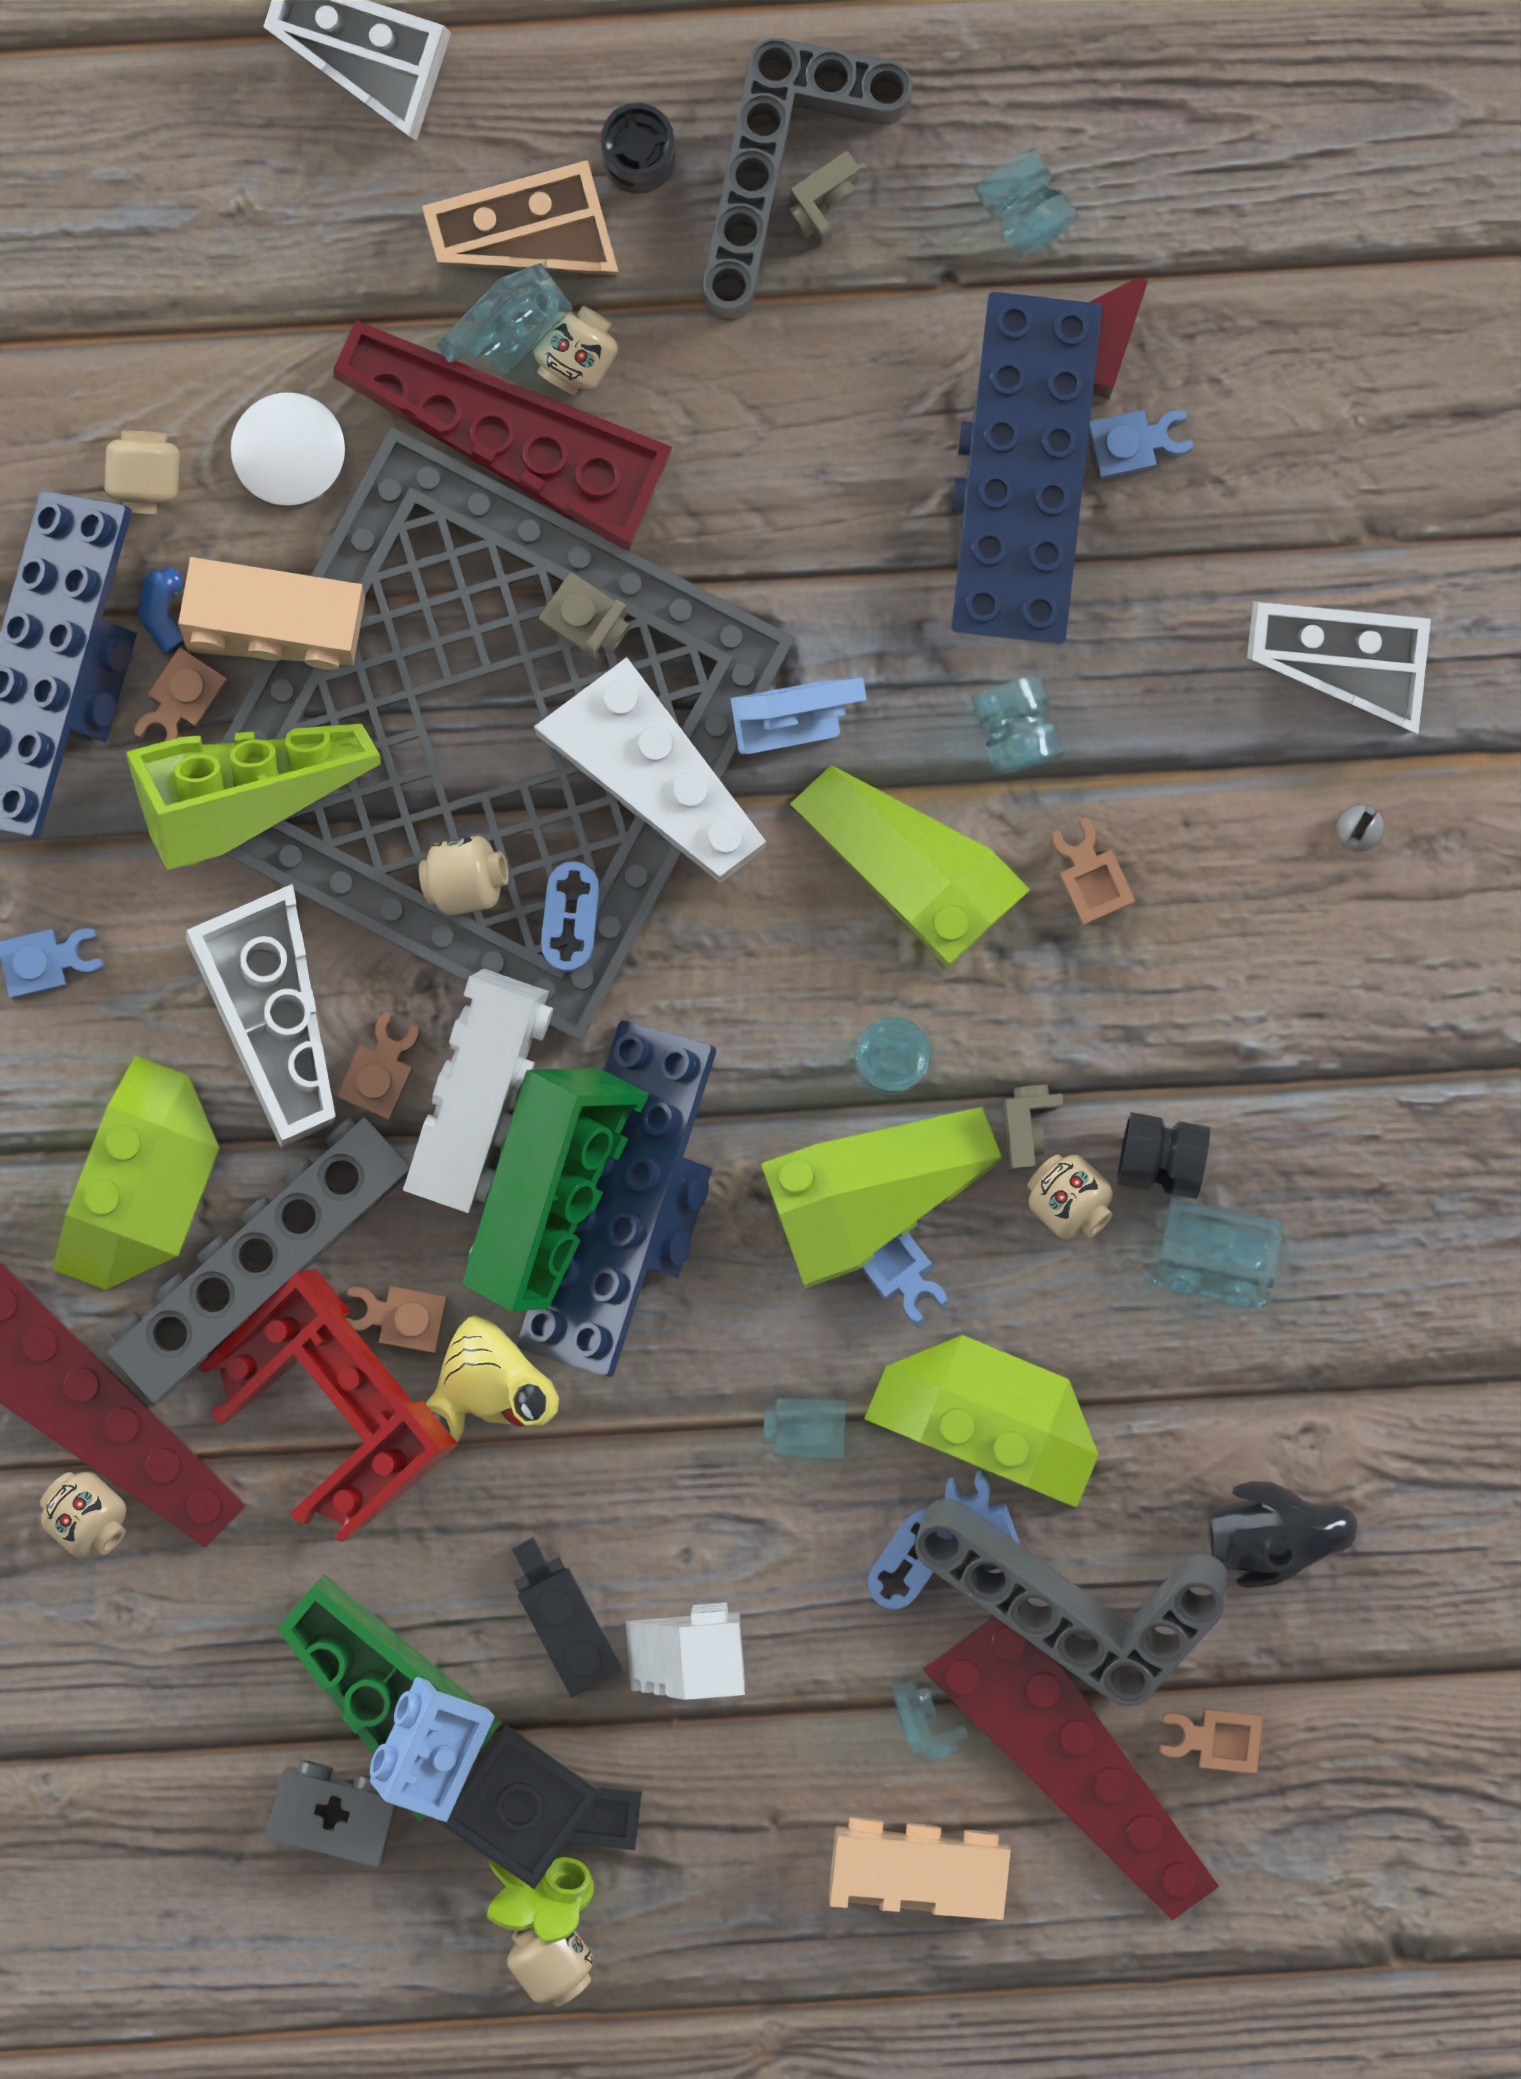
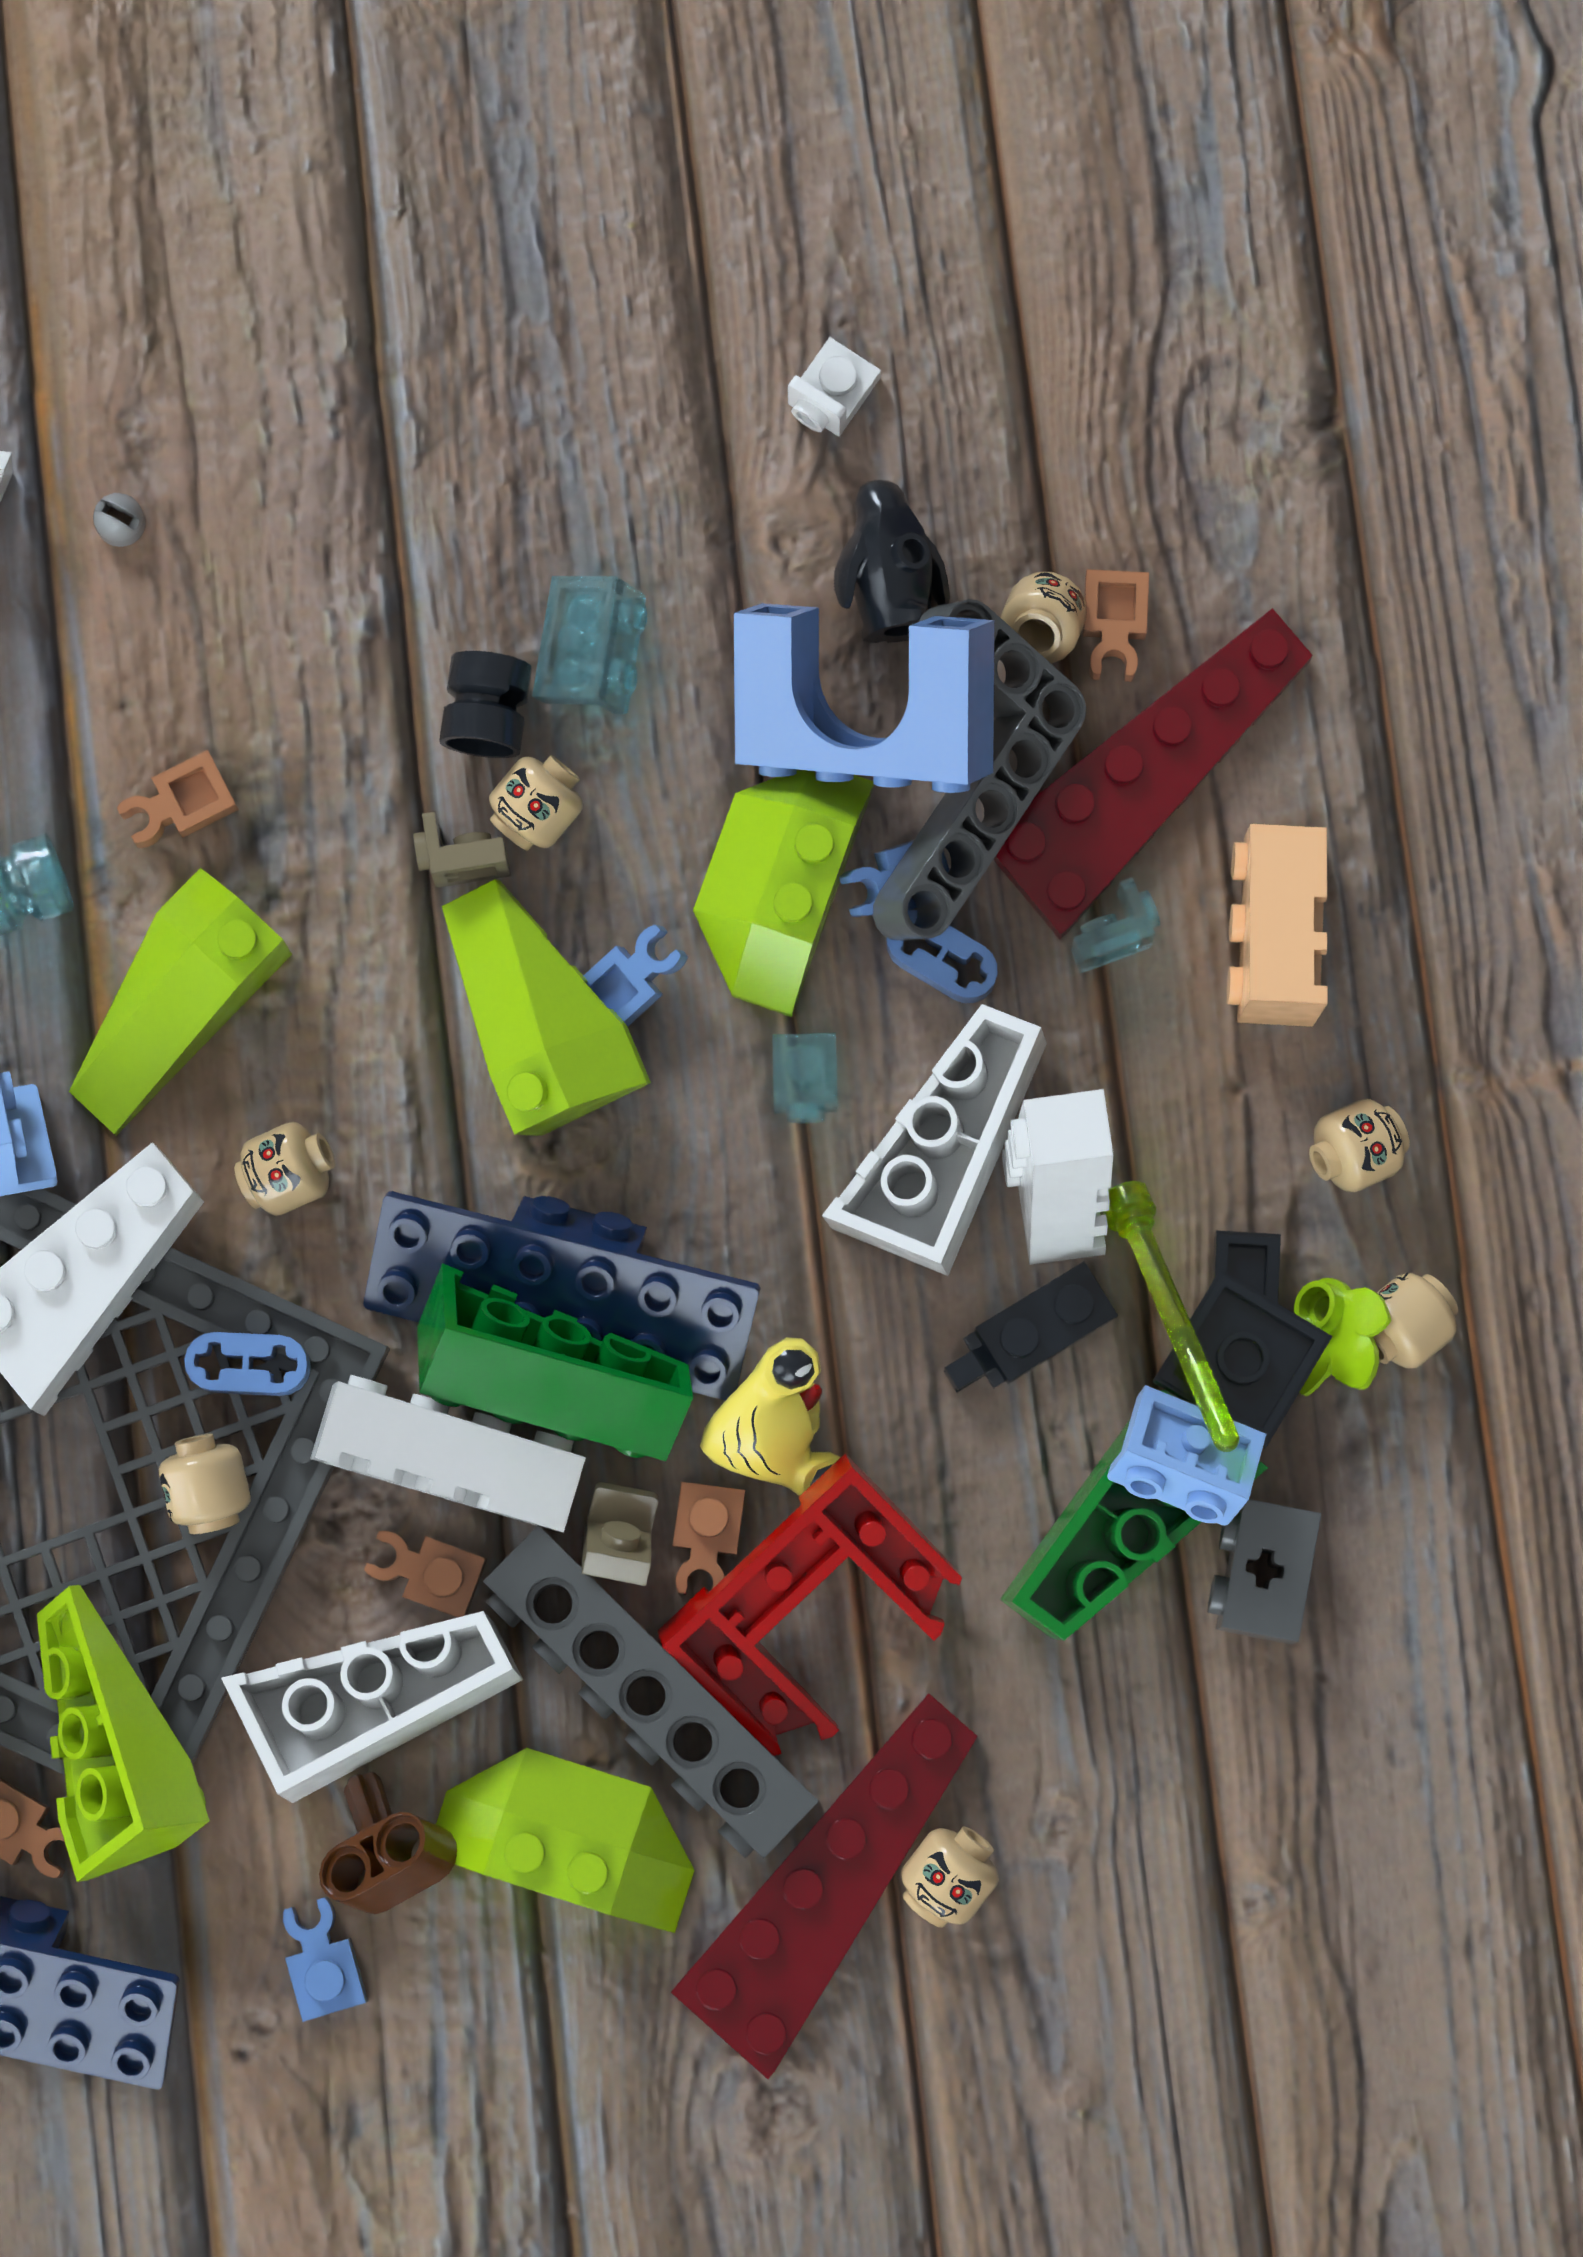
camera: 90 degrees left, 5 degrees down
(137, 1020) = (384, 1852): none -> reddish brown beam
(400, 1239) = (619, 1533): none -> dark tan bracket
(656, 1717) = (1132, 1217): none -> clear neon green piece
(711, 1928) = (1359, 1145): none -> tan head
(726, 1547) = (939, 1155): none -> white wedge
(746, 955) = (284, 1168): none -> tan head
(892, 1056) = (389, 1001): clear light blue wheel -> none
(1123, 1434) = (789, 725): none -> arch
(1219, 1674) = (1046, 613): none -> tan head
(1451, 1490) = (832, 388): none -> white bracket

